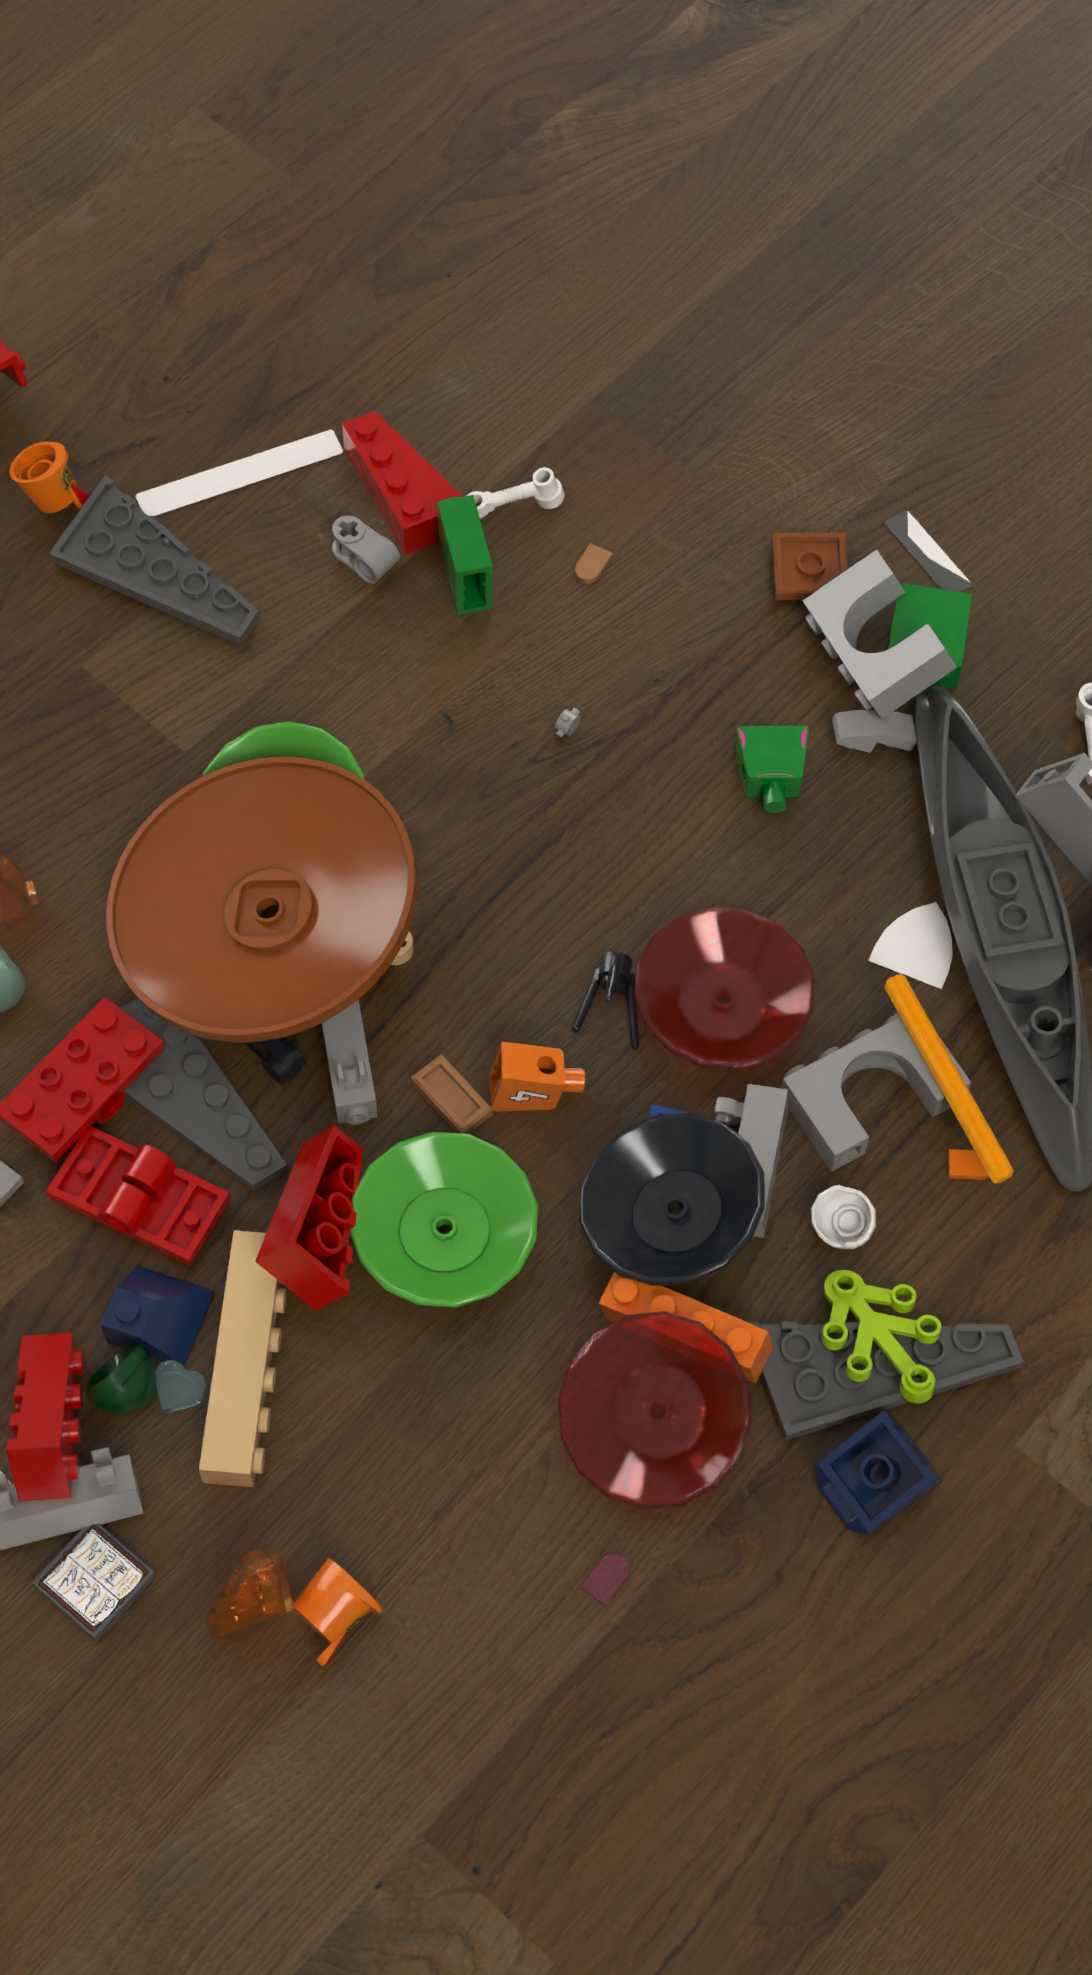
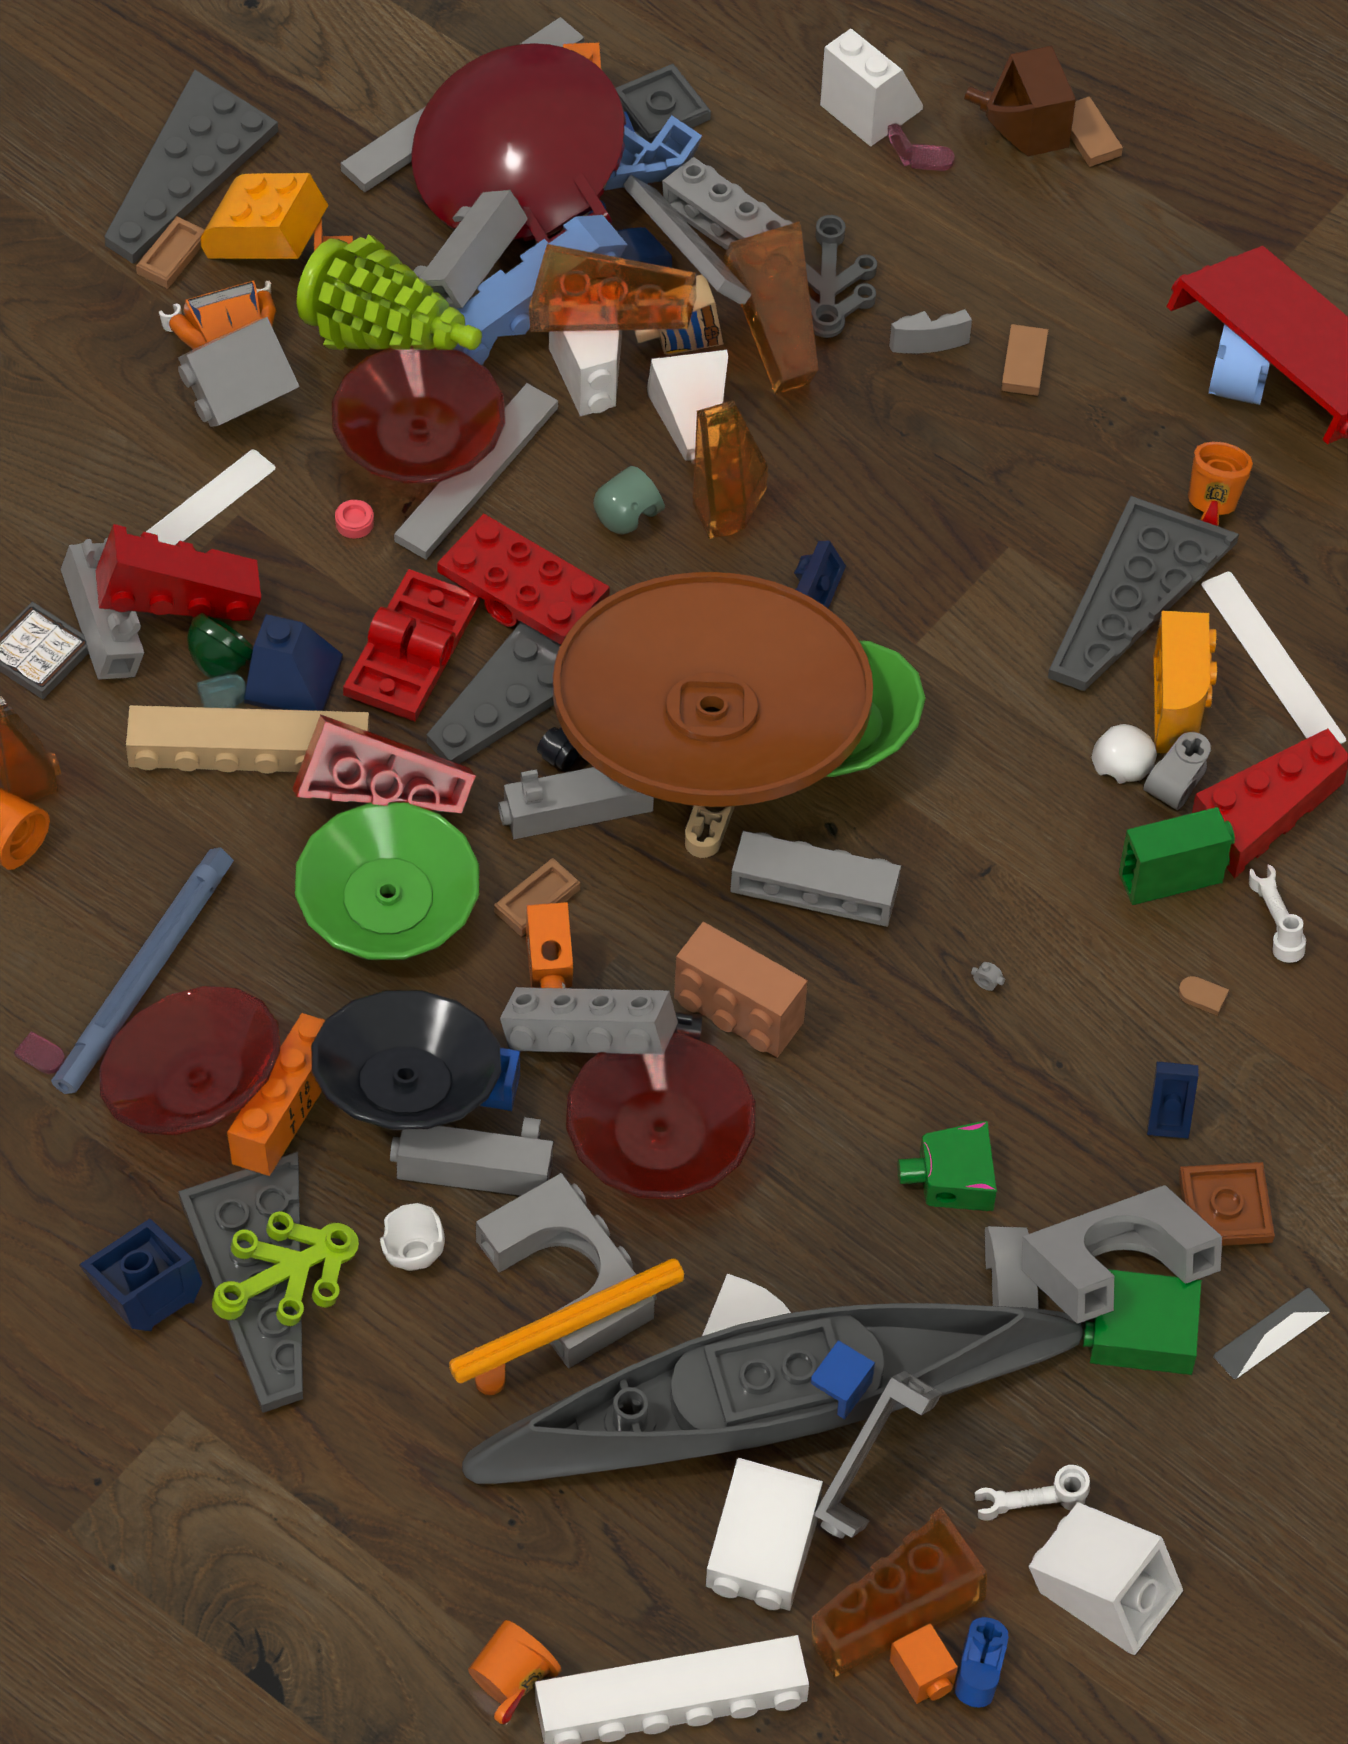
camera: 85 degrees right, 5 degrees down
(96, 819) = (820, 573): none -> dark blue hinge
(272, 530) = (1182, 675): none -> light orange brick
(334, 593) = (1124, 753): none -> white hair
(460, 845) = (815, 878): none -> light grey brick
(518, 1471) = (142, 971): none -> sand blue piece
(588, 913) = (740, 989): none -> nougat brick
(623, 1040) = (589, 1020): none -> light grey brick
(716, 585) = (1172, 1100): none -> dark blue hinge
(1033, 834) = (844, 1376): none -> blue panel

